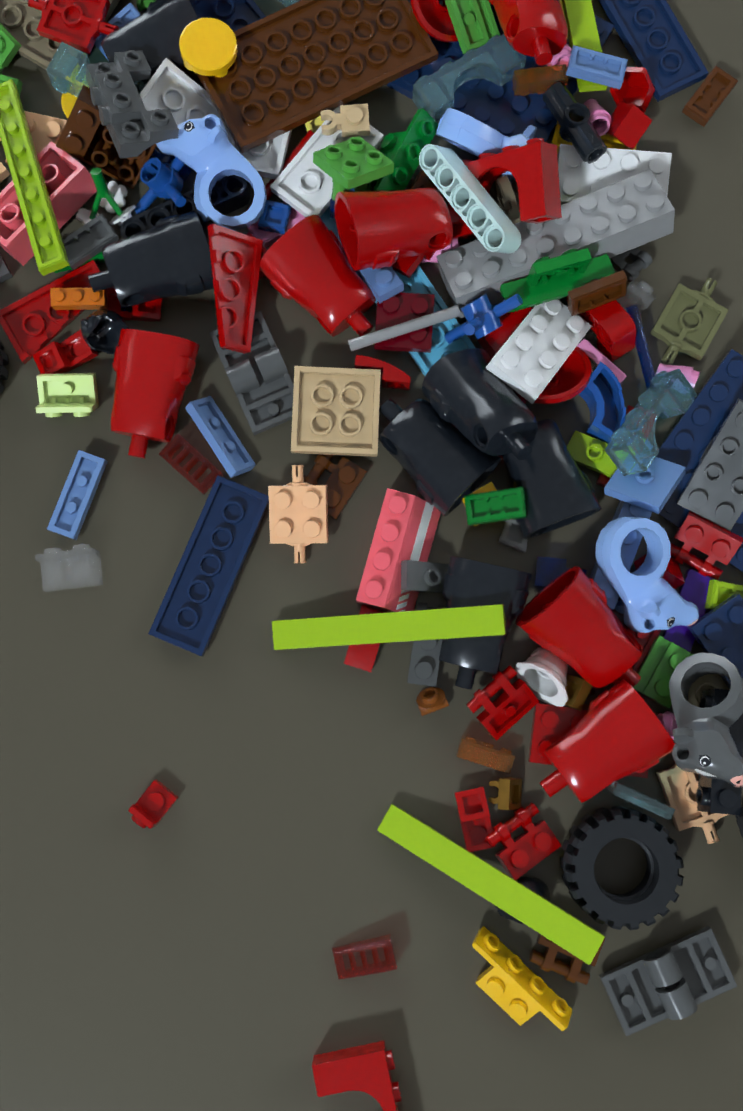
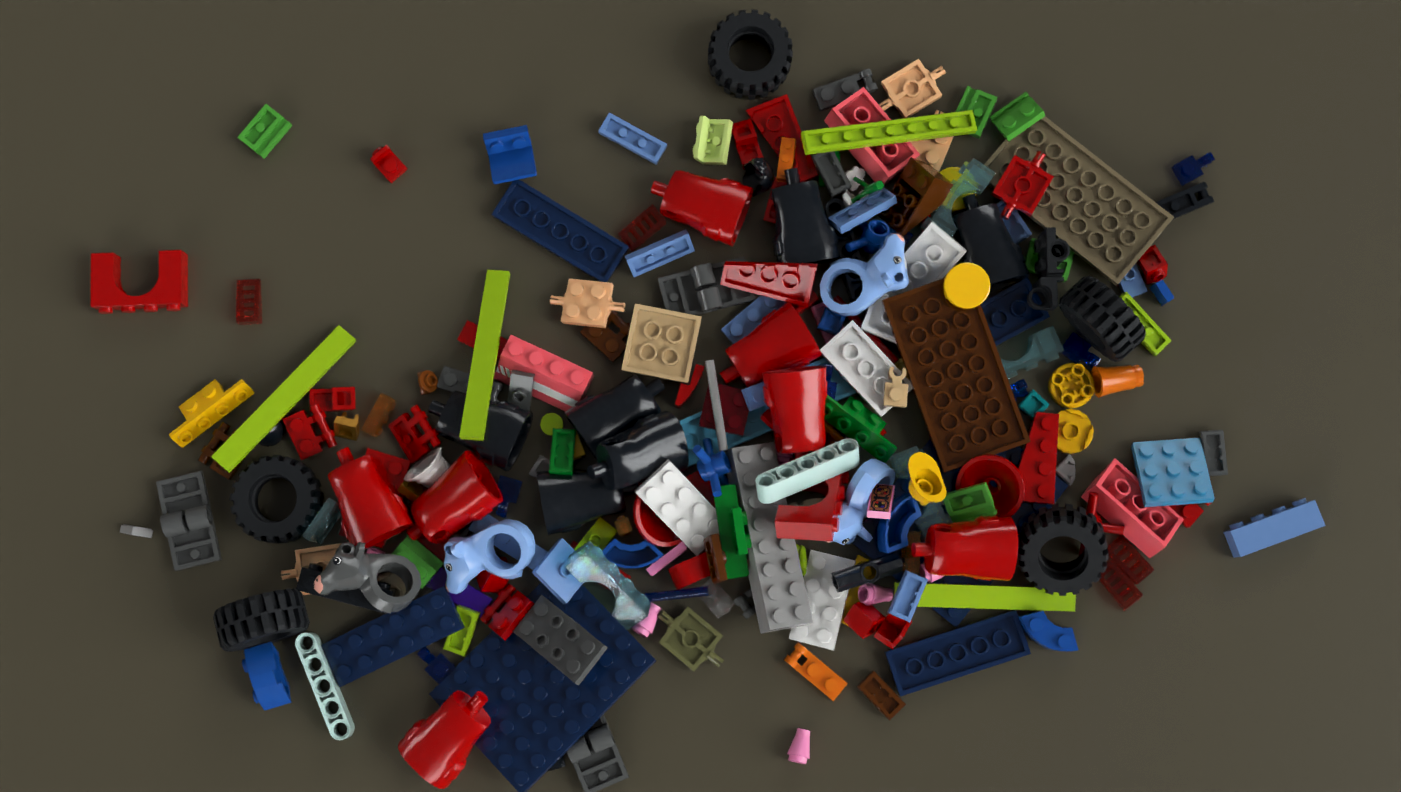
camera: 90 degrees right, 0 degrees up
(70, 568) = (576, 126): clear bracket -> none
(119, 644) = (510, 154): none -> blue bracket
(122, 108) = (926, 209): dark grey bracket -> none
(131, 192) = (862, 210): none -> medium blue plate
(131, 981) = (265, 131): none -> bright green plate
(286, 315) = (750, 318): none -> medium blue plate
(352, 165) = (852, 384): bright green plate -> none
(457, 61) = (926, 479): none -> yellow piece
(457, 534) = (551, 421): none -> lime tile
(493, 111) = (881, 501): none -> tile
(510, 95) = (893, 532): none -> blue brick
(572, 418) = (623, 526): none -> clear orange piece
(697, 173) = (816, 672): none -> orange plate
(697, 1057) = (135, 530): none -> light grey tile

